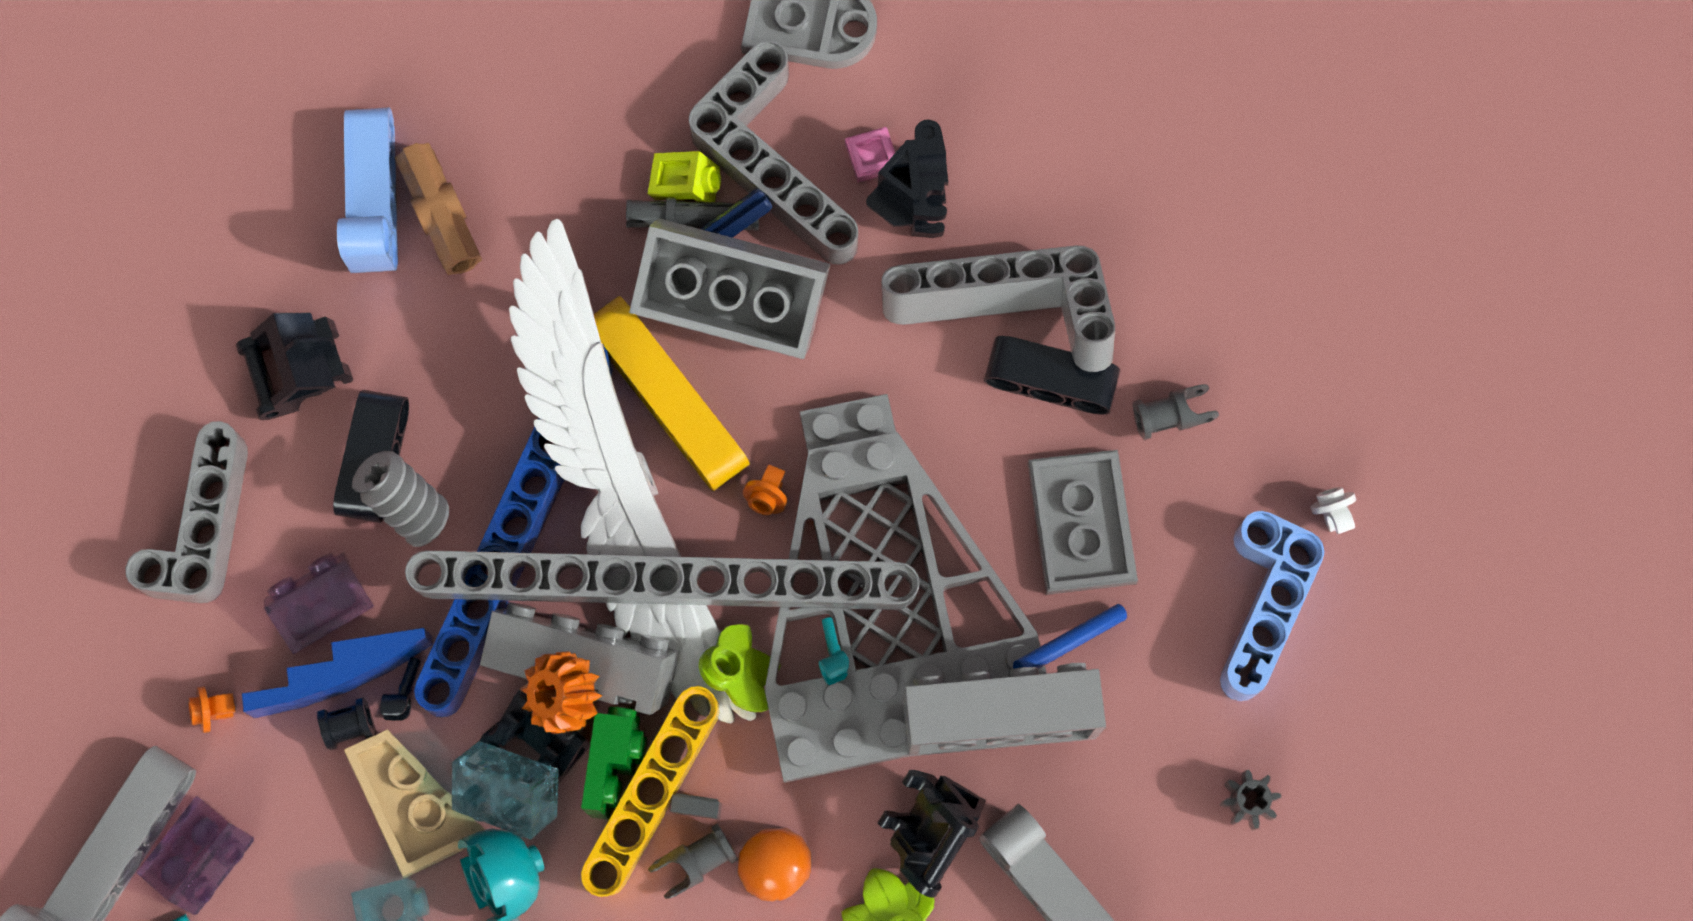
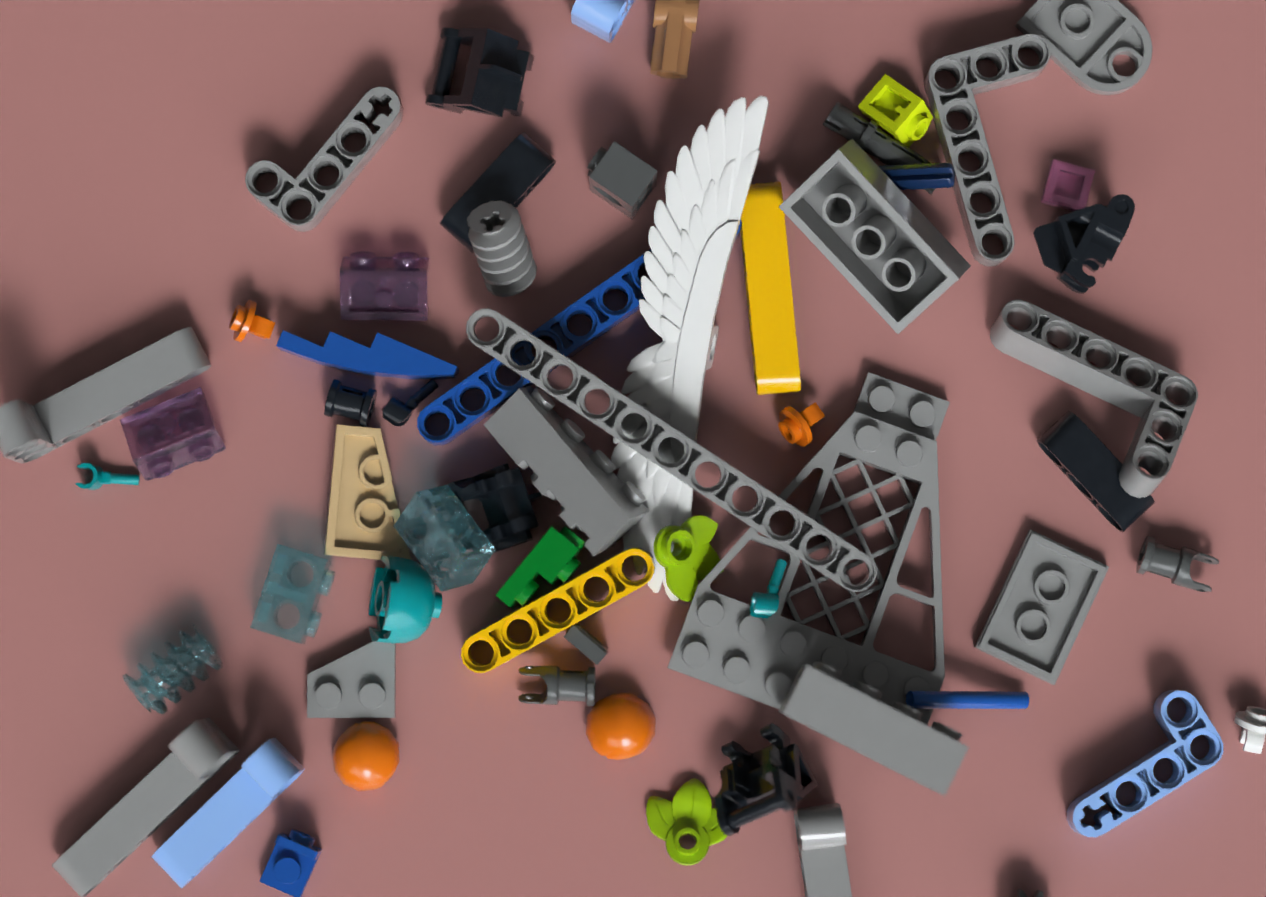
camera: 30 degrees right, 10 degrees up
(475, 374) = (621, 178): none -> dark grey brick
(560, 692) = (534, 493): orange gear -> none

